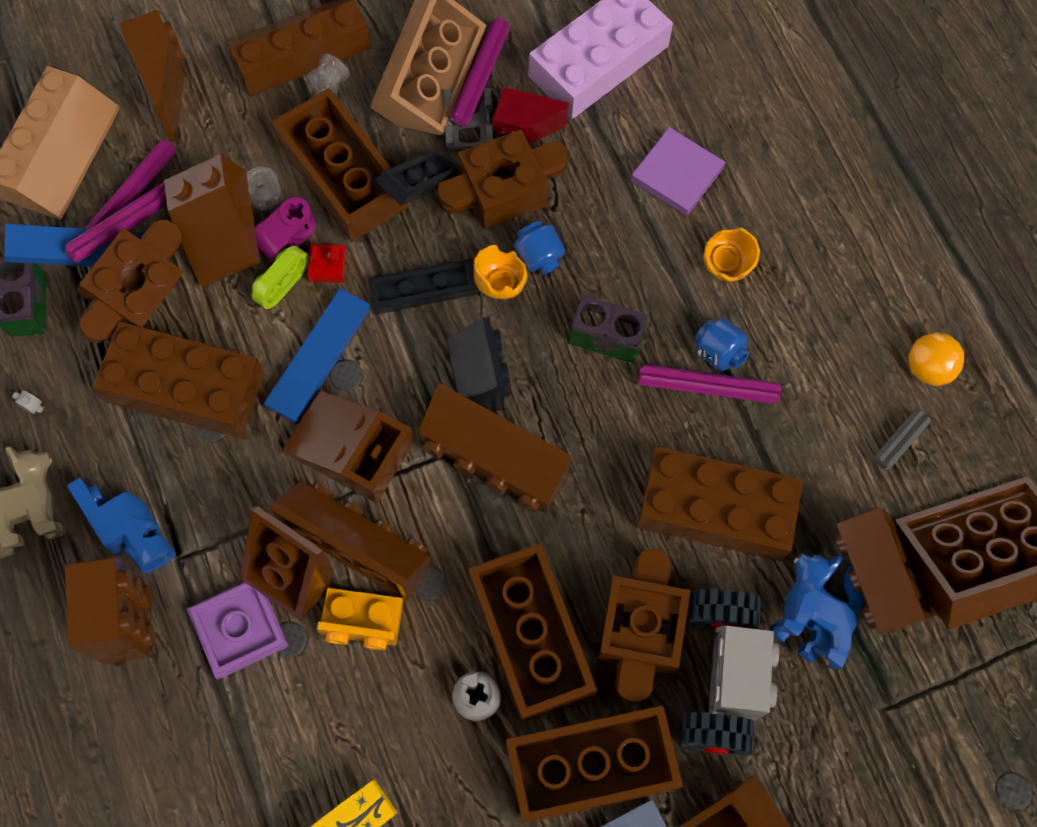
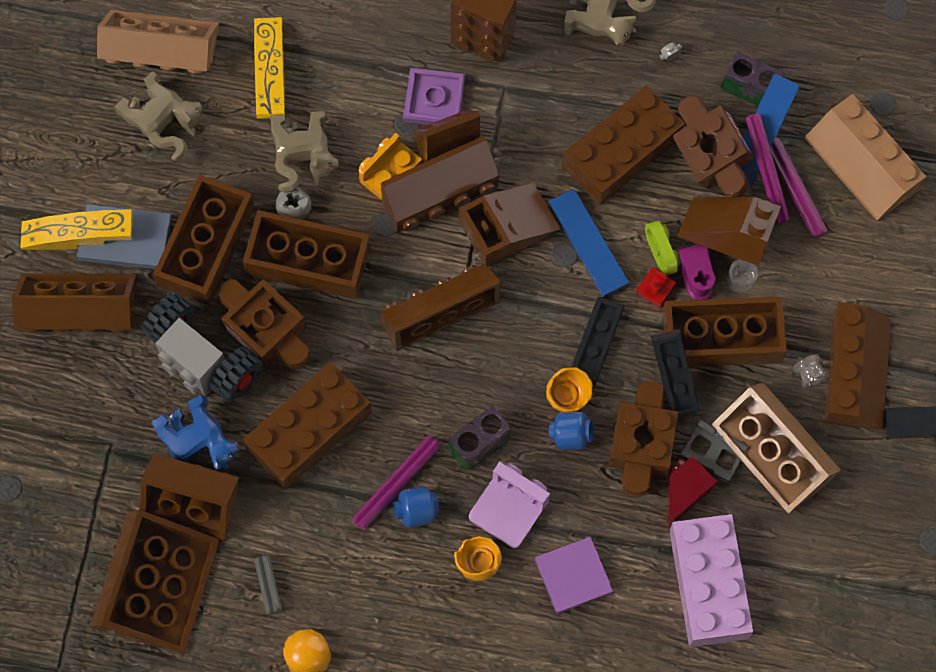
camera: 125 degrees right, 0 degrees up
(124, 525) = (545, 63): blue plate -> none
(158, 62) = (879, 249): reddish brown slope -> none
(399, 731) = (300, 146): none -> dark tan animal
(479, 365) = (503, 331): black slope -> none
(480, 72) = (748, 482): magenta axle -> none
(656, 261) = (509, 505): none -> lavender bracket

